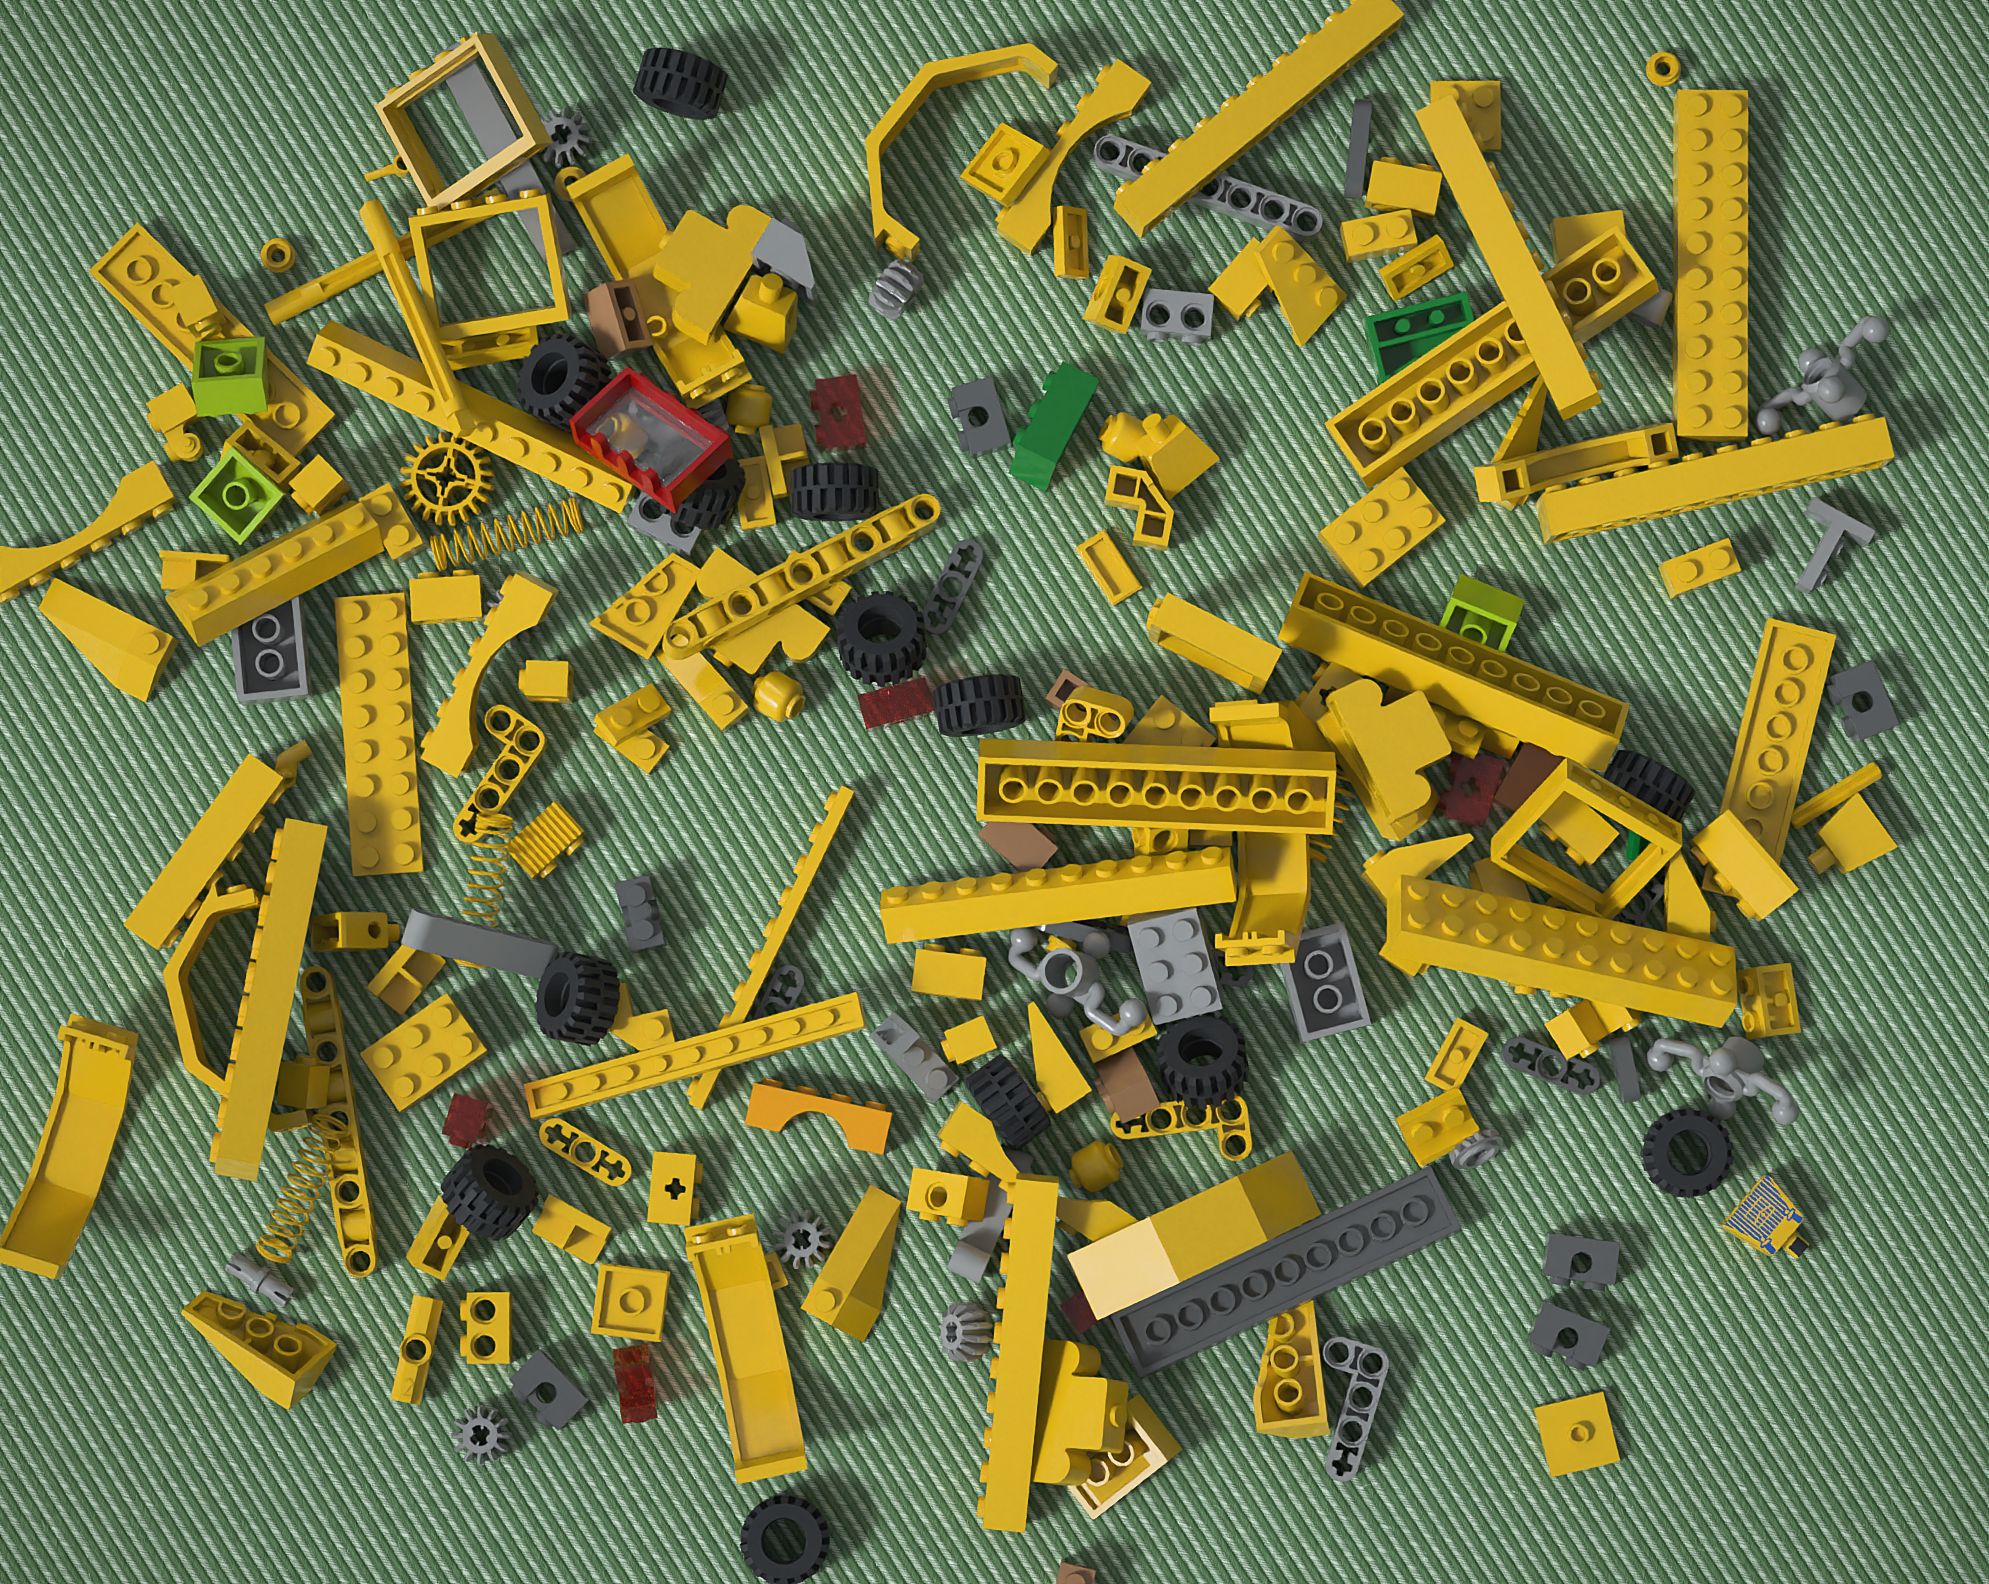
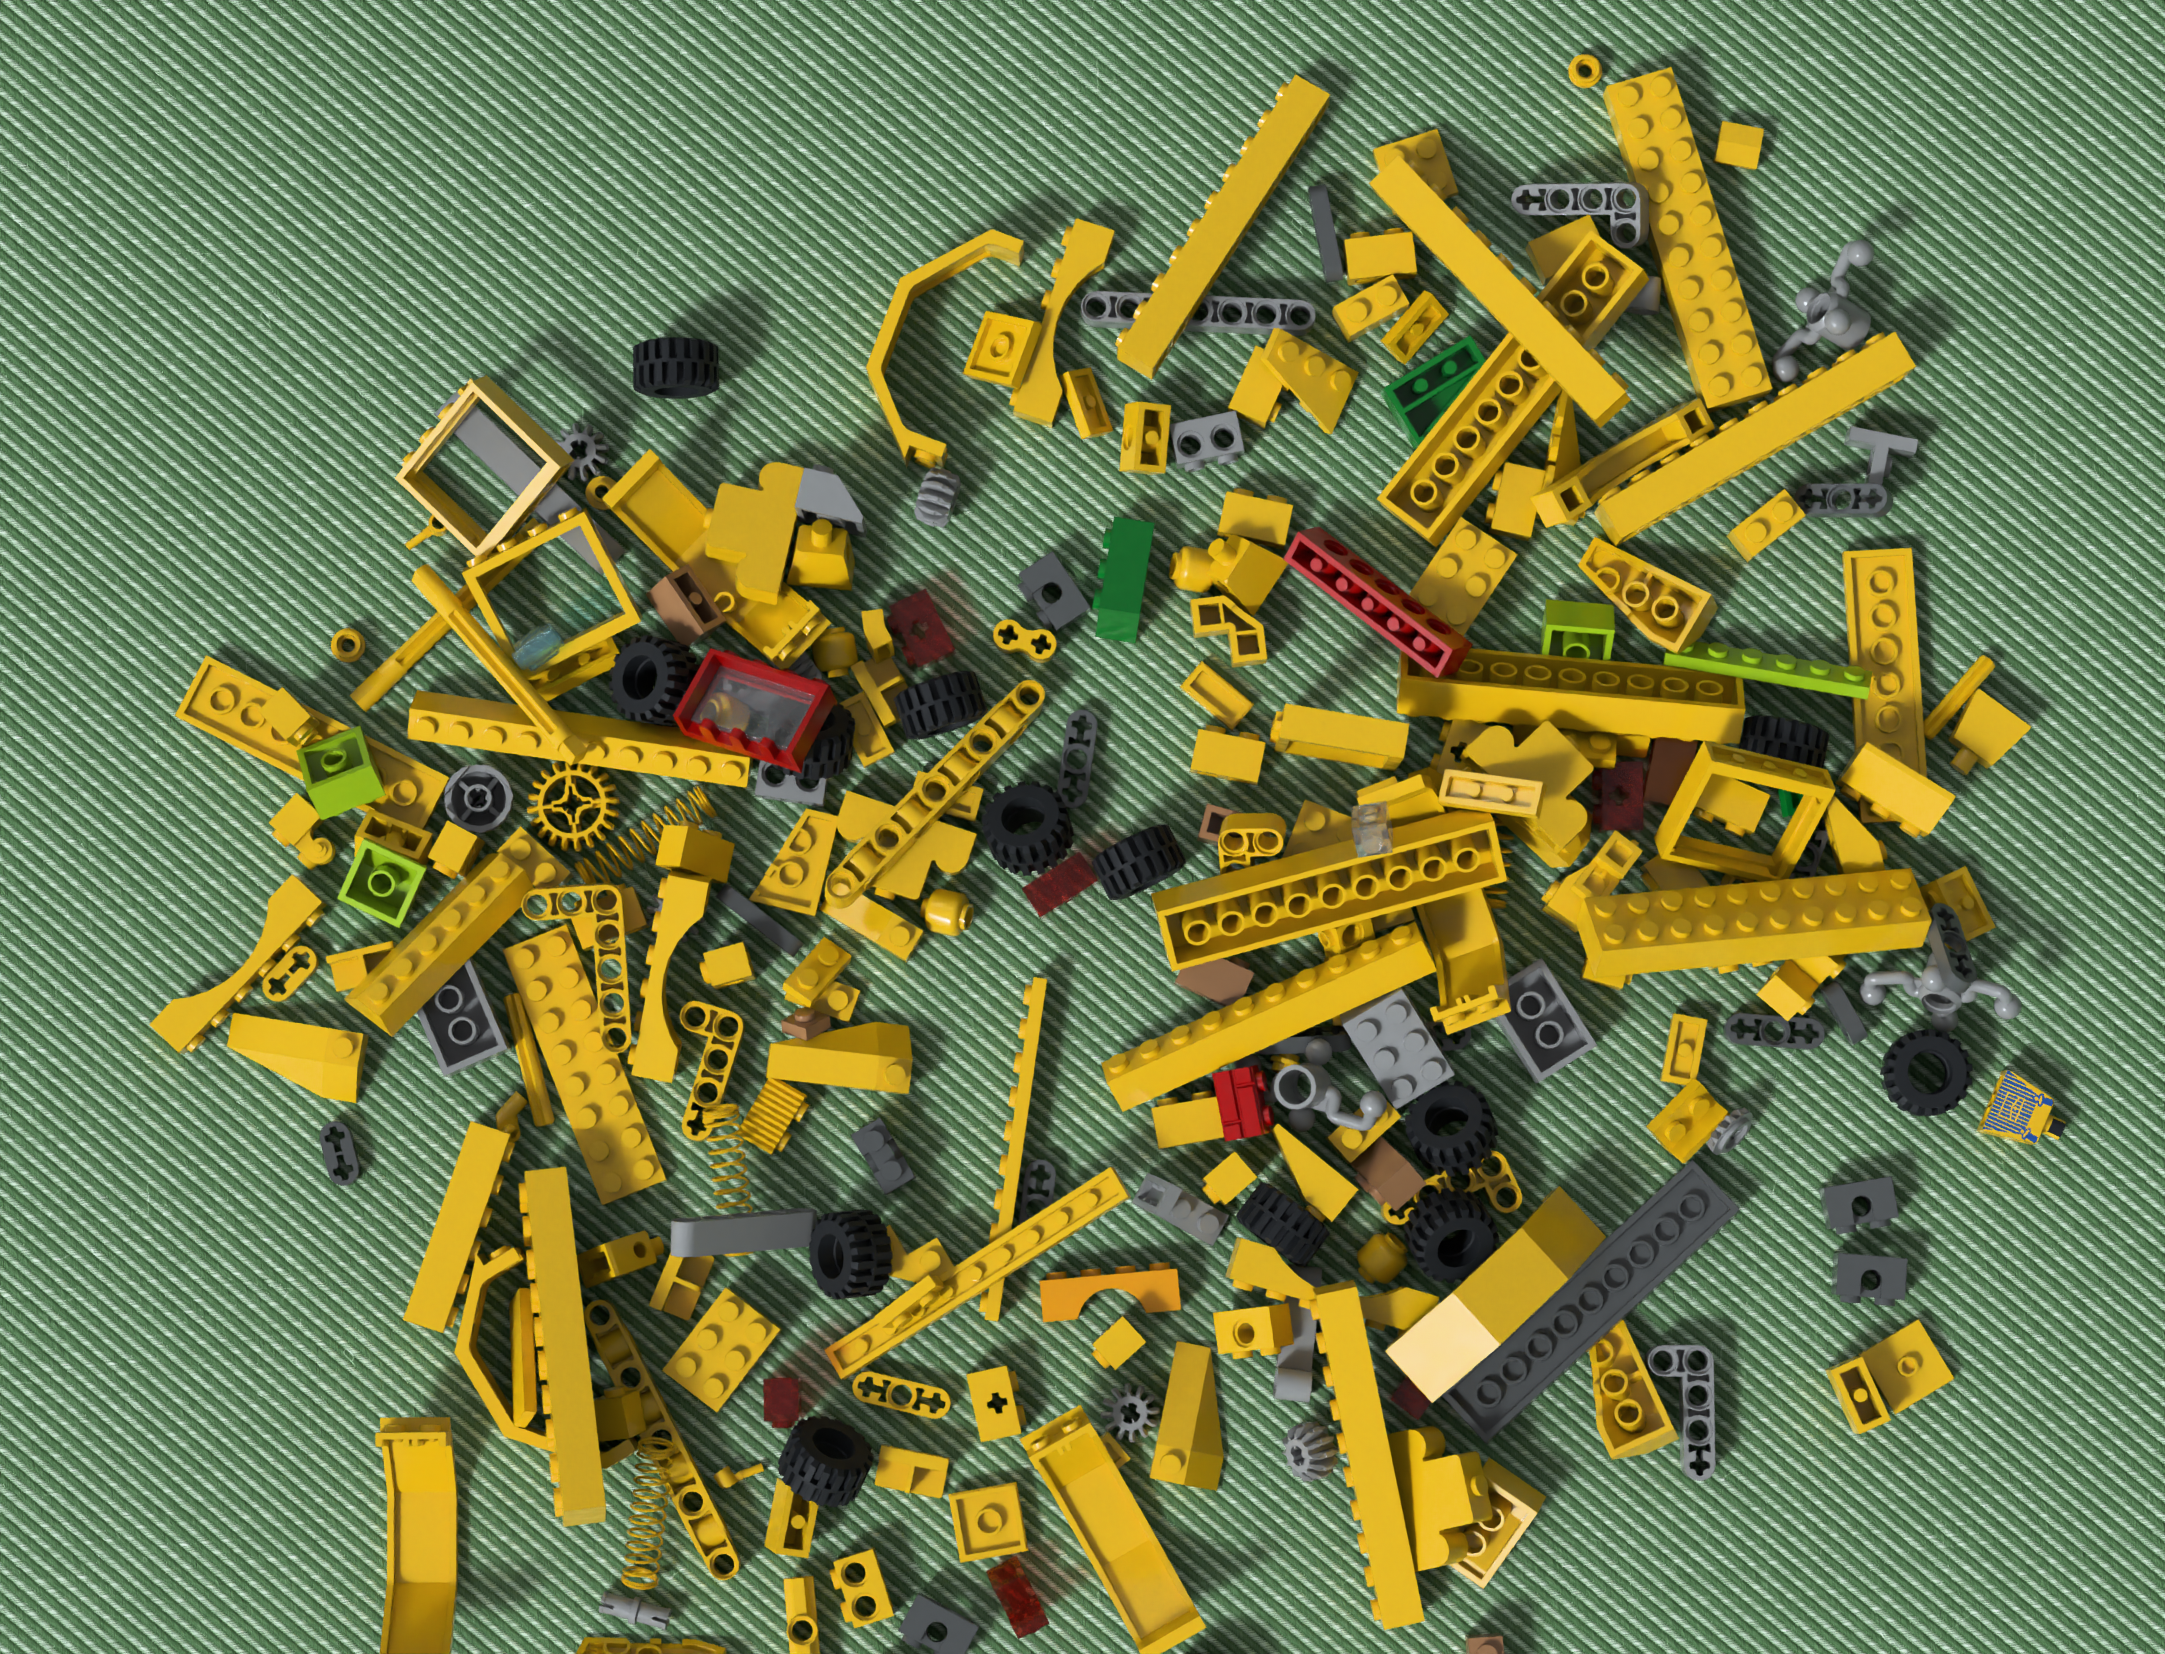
camera: 20 degrees left, 0 degrees up
(106, 746) = (332, 1156): none -> dark grey beam
(126, 564) = (284, 967): none -> yellow beam
(227, 1000) = (522, 1358): none -> yellow tile
(326, 713) = (528, 1060): none -> yellow axle
(347, 430) = (462, 796): none -> light grey cylinder
(389, 1179) = (726, 1478): none -> yellow hand
(429, 628) = (602, 949): none -> yellow beam
(459, 313) = (537, 647): none -> clear light blue brick
(550, 560) = (695, 851): none -> yellow brick
(593, 647) = (759, 920): none -> dark grey beam
(606, 761) = (805, 1023): none -> medium nougat plate
(632, 1059) = (900, 1310): none -> yellow plate
(643, 809) = (856, 1057): none -> yellow wedge
(794, 405) = (876, 635): none -> yellow piece
(810, 1168) = (1117, 1344): none -> yellow brick
(937, 456) = (1024, 641): none -> yellow axle
(1007, 971) = (1243, 1102): none -> red brick
(1100, 629) = (1228, 755): none -> yellow brick
(1166, 1142) = (1438, 1218): none -> black tyre
(1200, 406) = (1255, 518): none -> yellow brick
(1214, 742) = (1372, 829): none -> clear brick
(1293, 523) = (1378, 601): none -> red brick
(1343, 744) = (1492, 793): none -> yellow plate
(1435, 852) = (1607, 867): none -> yellow slope
(1455, 478) = (1513, 510): none -> yellow brick
(1519, 1446) = (1857, 1394): none -> yellow brick
(1565, 606) = (1652, 599): none -> yellow wedge
(1617, 197) = (1580, 204): none -> light grey beam
(1657, 708) = (1774, 669): none -> lime plate
(1746, 1058) = (1955, 968): none -> dark grey beam
(1791, 188) = (1738, 145): none -> yellow piece
(1793, 578) = (1856, 507): none -> dark grey beam
(1866, 682) = (1974, 607): dark grey brick -> none

